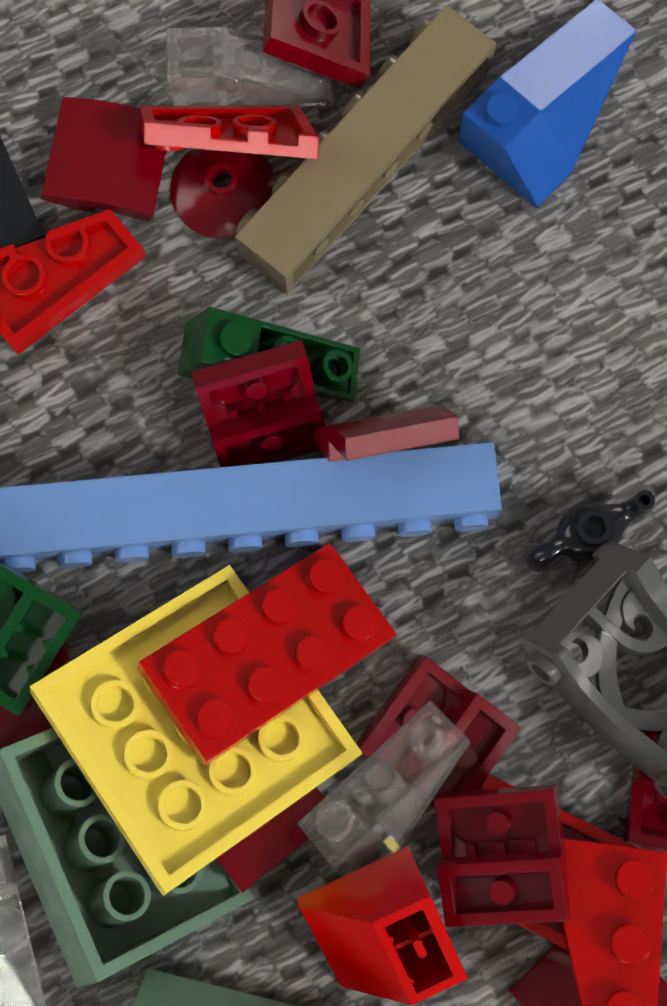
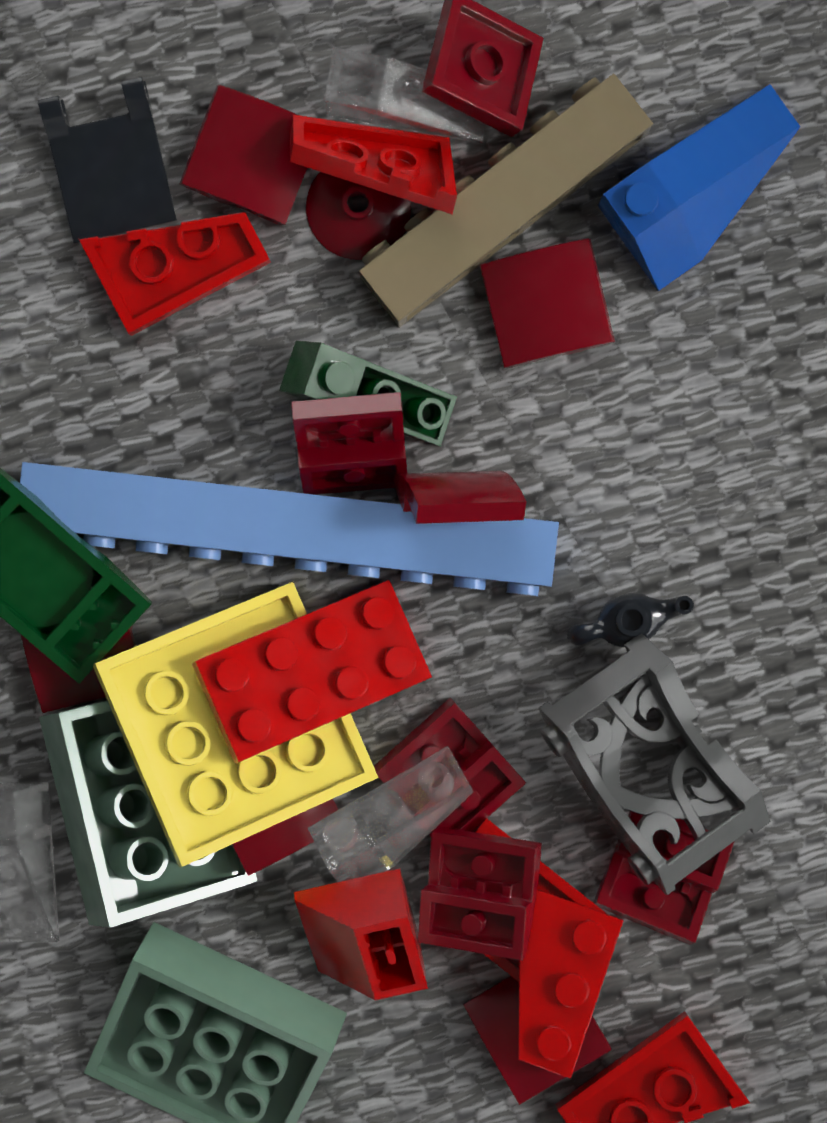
camera: 10 degrees right, 10 degrees up
(430, 238) = (547, 303): none -> dark red slope

